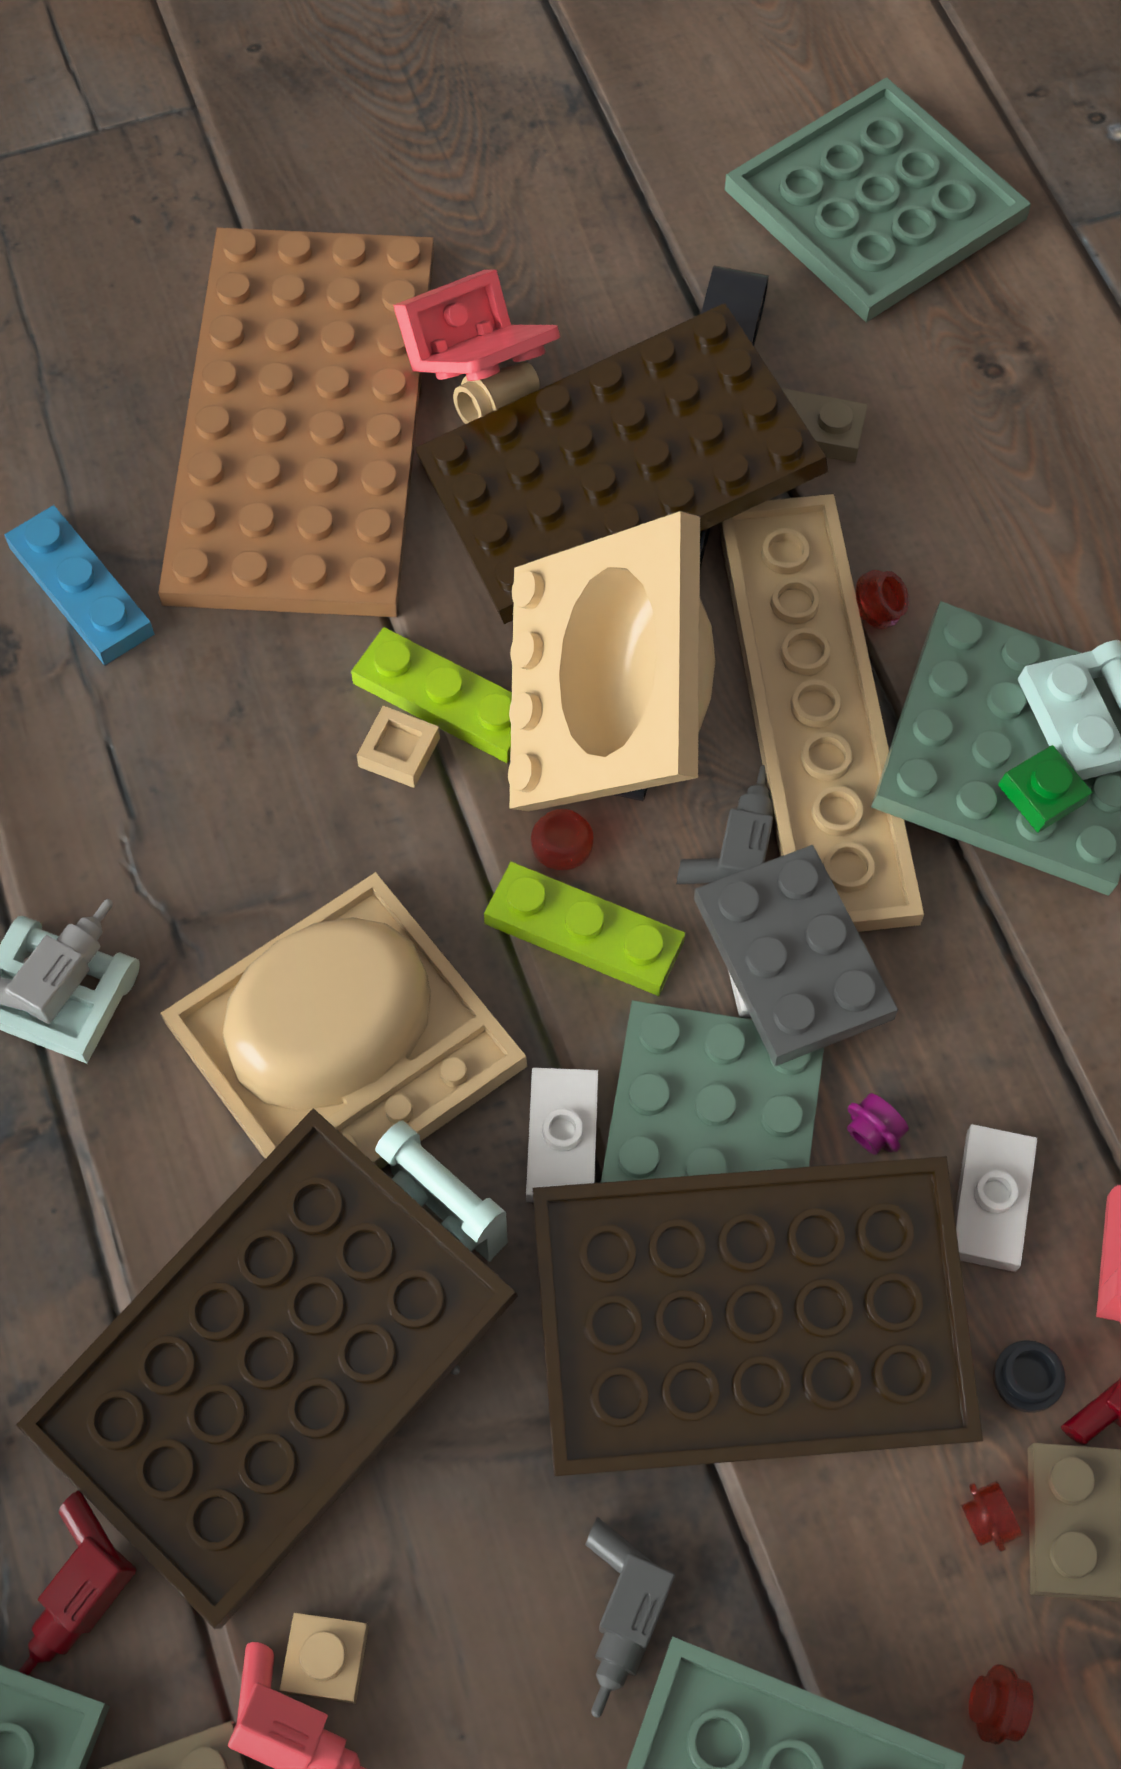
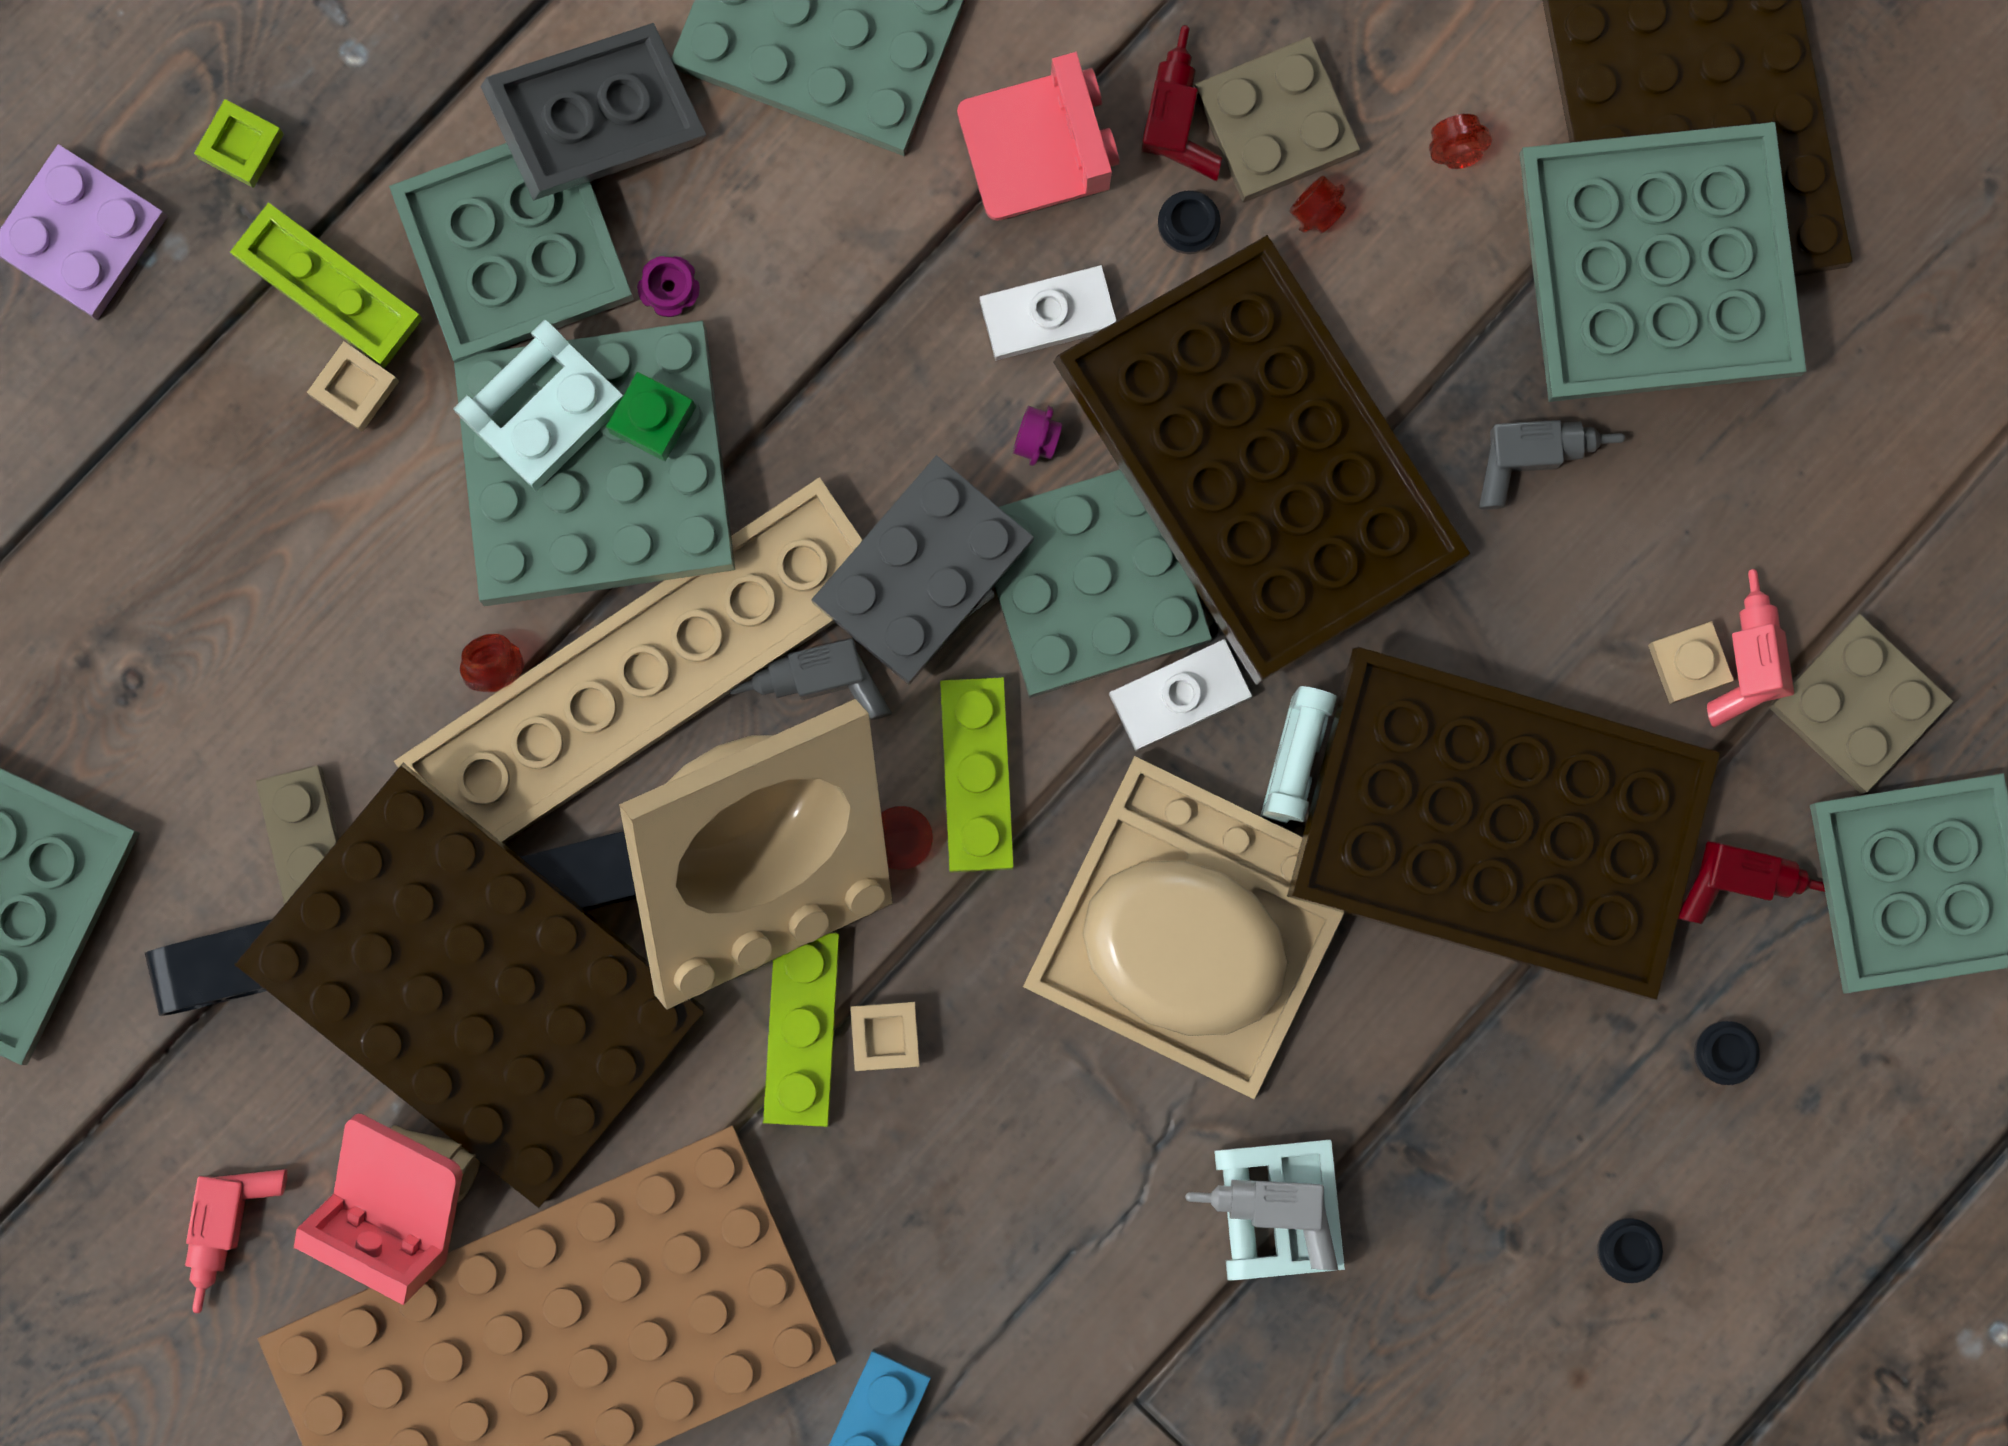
camera: 120 degrees left, 20 degrees up
(536, 252) = (218, 1221): none -> coral piece

